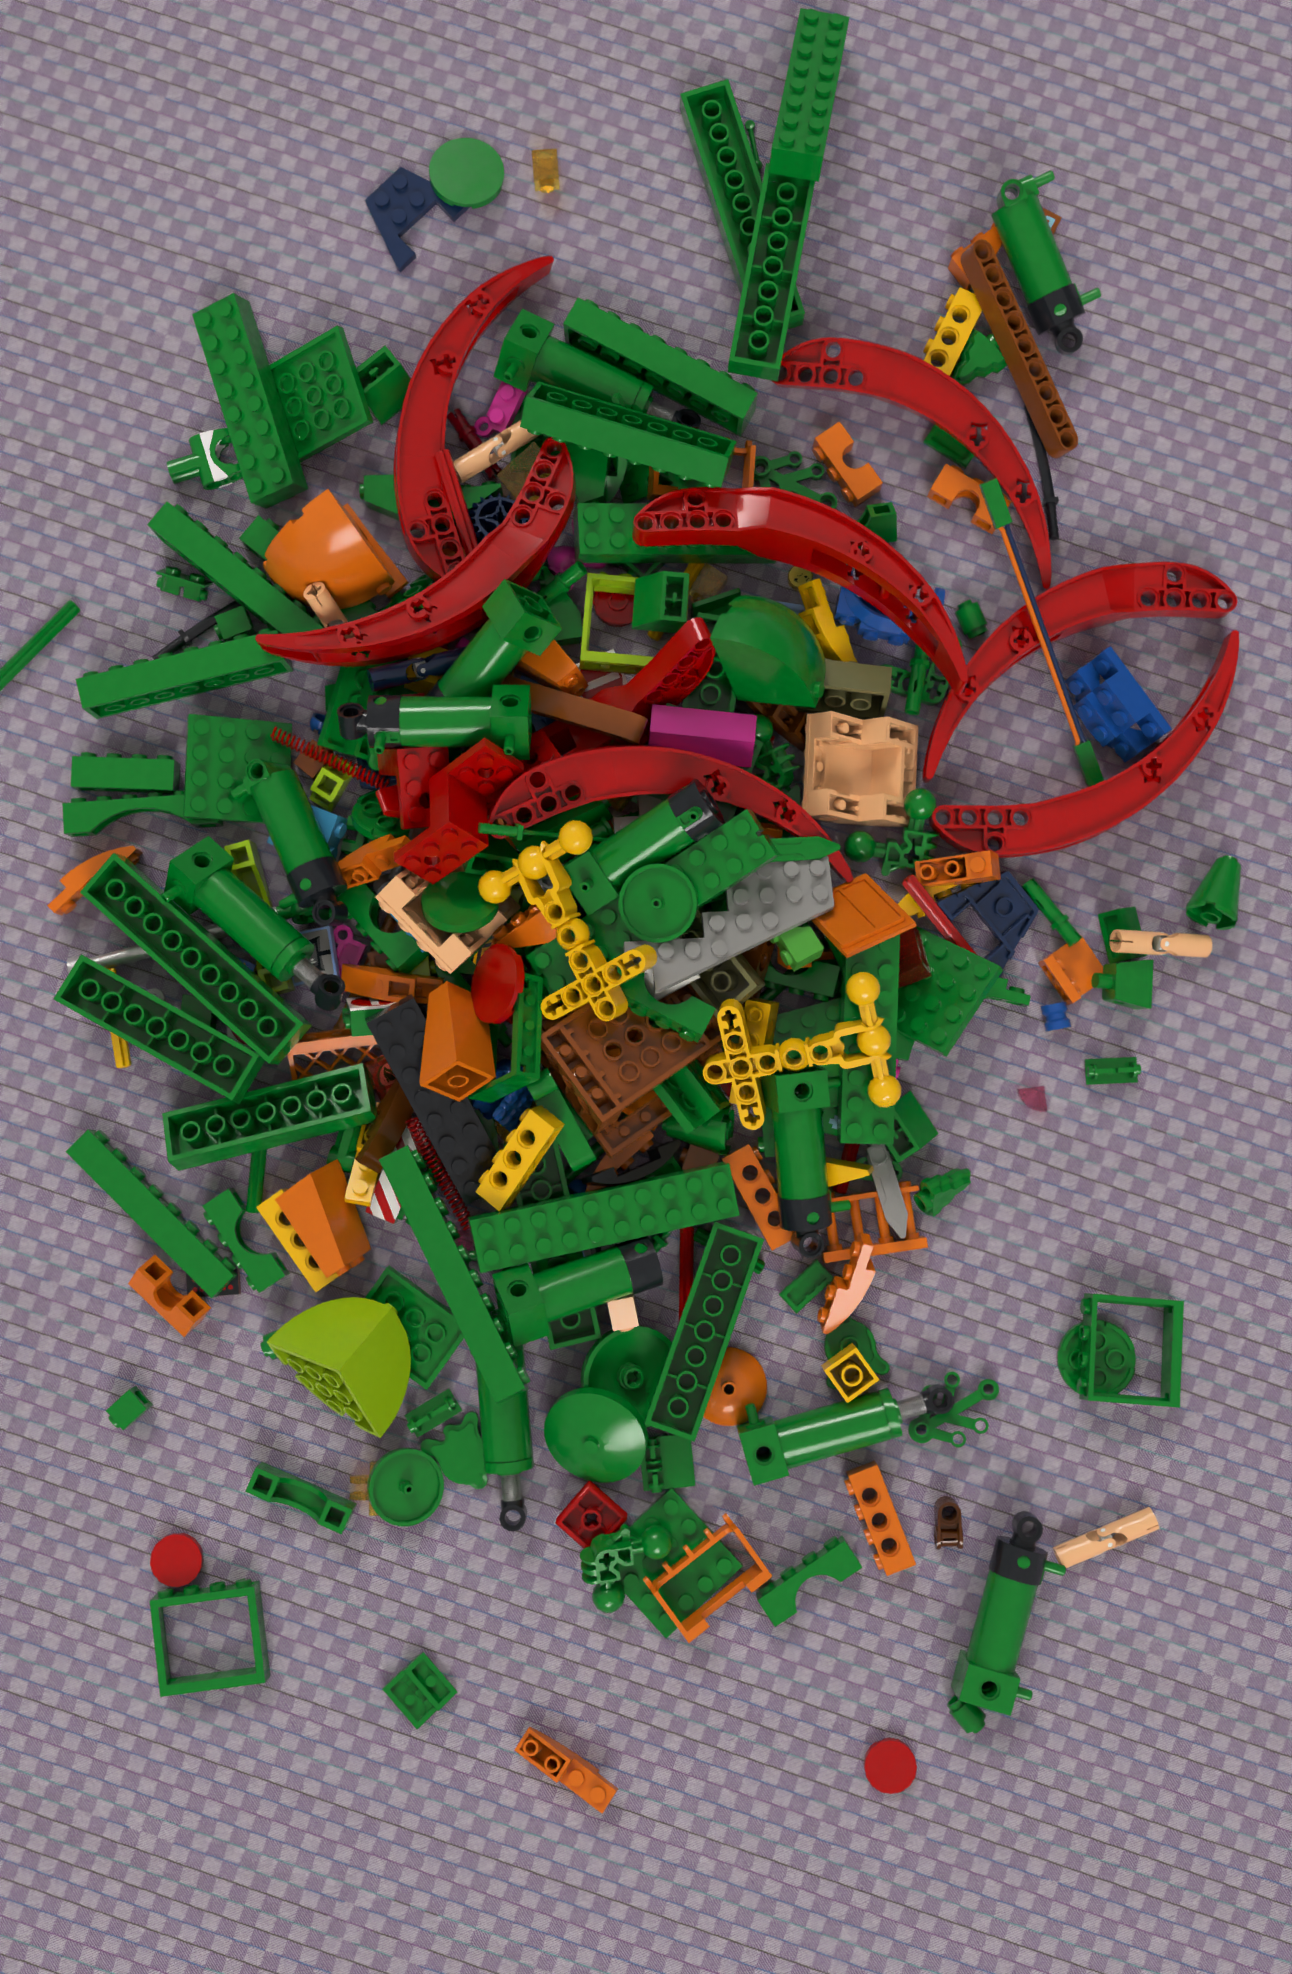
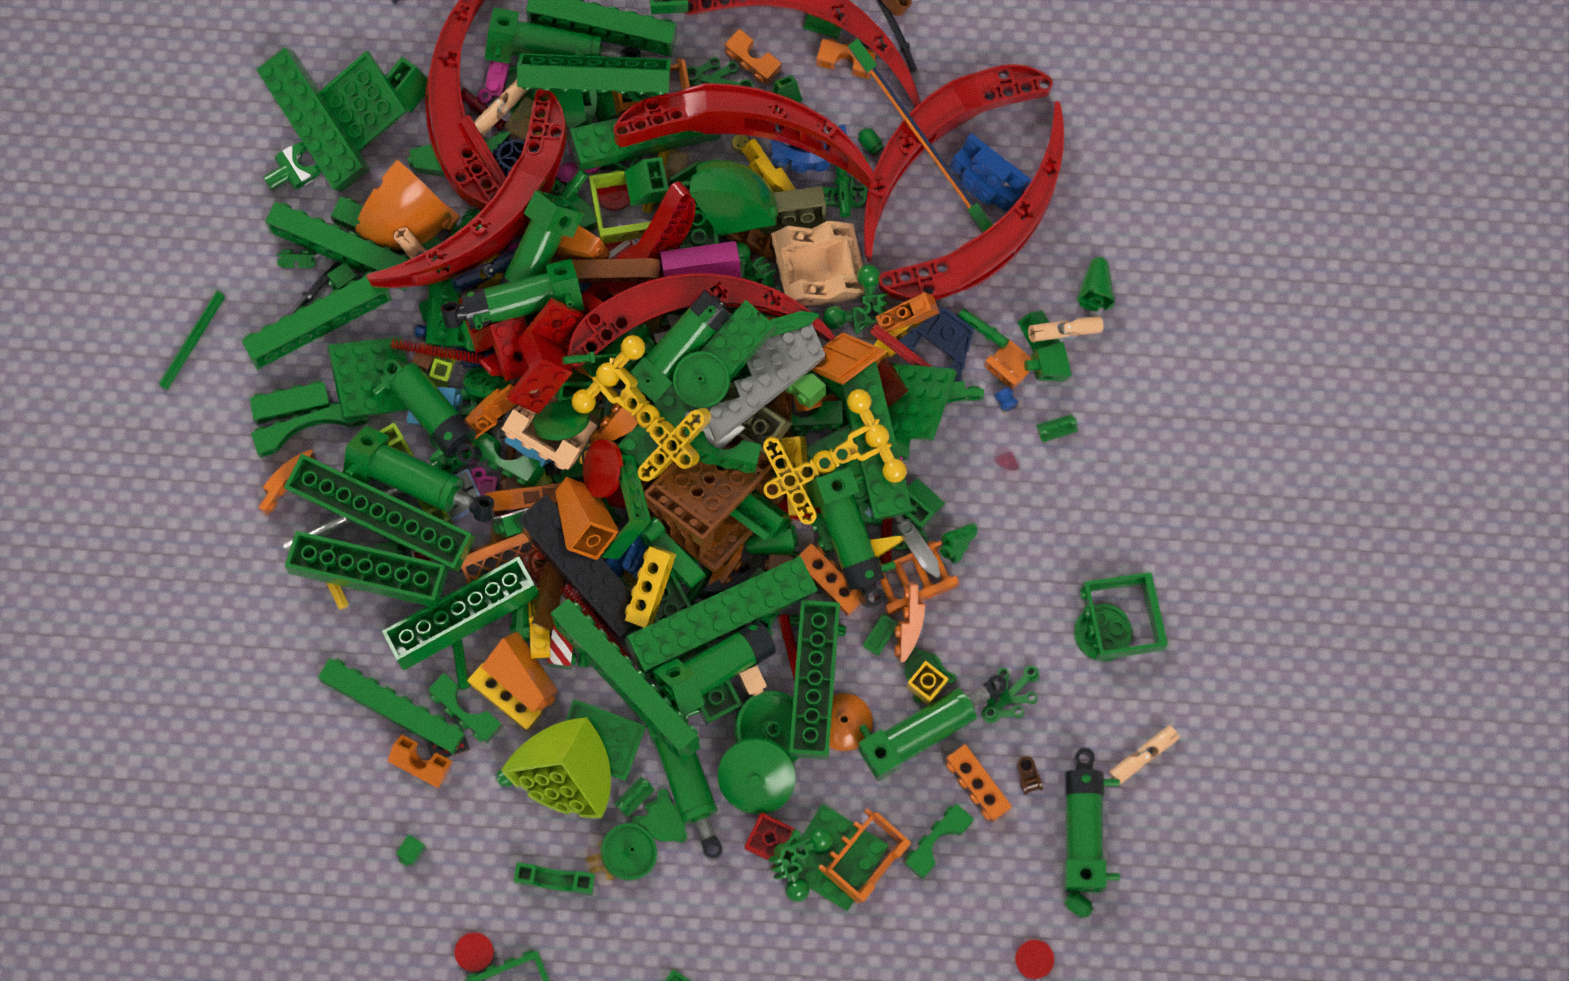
camera: 20 degrees left, 10 degrees down
(667, 1464) = (814, 786): green hinge -> none

